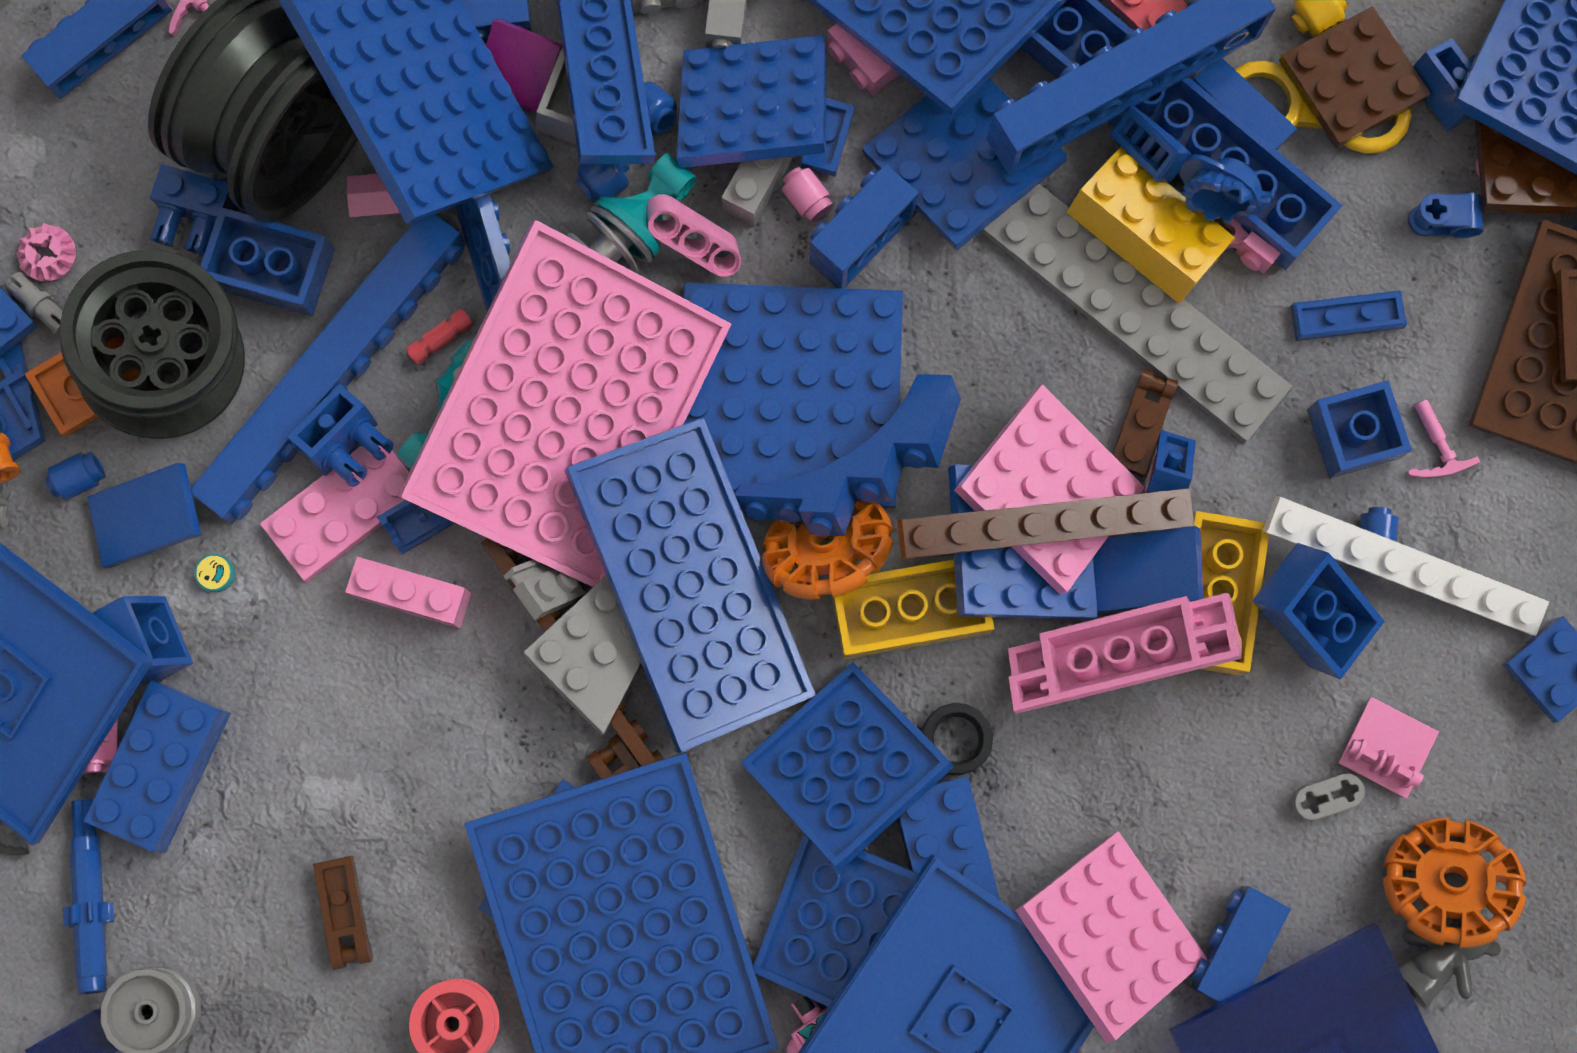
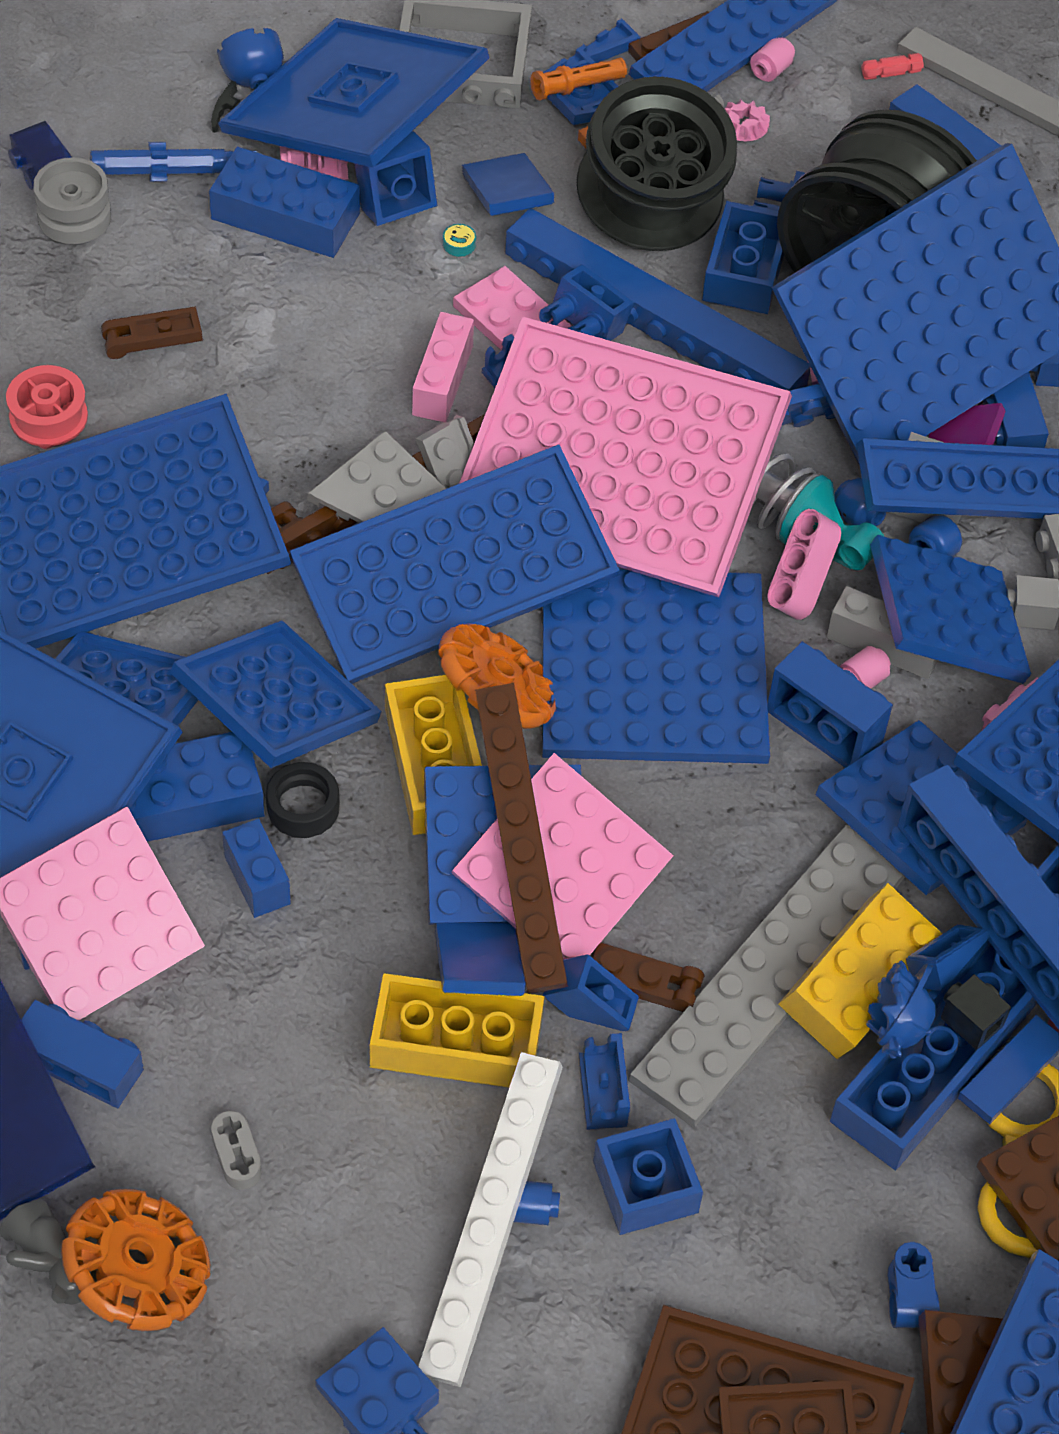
camera: 85 degrees right, 25 degrees down
(75, 475) = (542, 142): blue brick -> none
(838, 122) = (927, 690): blue plate -> none
(868, 473) = (573, 706): blue arch -> none
(1039, 782) = (256, 868): none -> blue brick
(1123, 651) = (392, 922): bright pink slope -> none
(1217, 125) = (974, 1011): none -> pearl dark grey brick
(1254, 251) = (841, 1078): bright pink plate -> none
(1258, 463) = (604, 1084): none -> blue hinge
(1318, 610) = (436, 1114): blue brick -> none
(1348, 315) = (783, 1187): blue tile -> none
(1389, 748) = (289, 1213): bright pink hinge -> none
(1438, 437) = (647, 1278): bright pink piece -> none

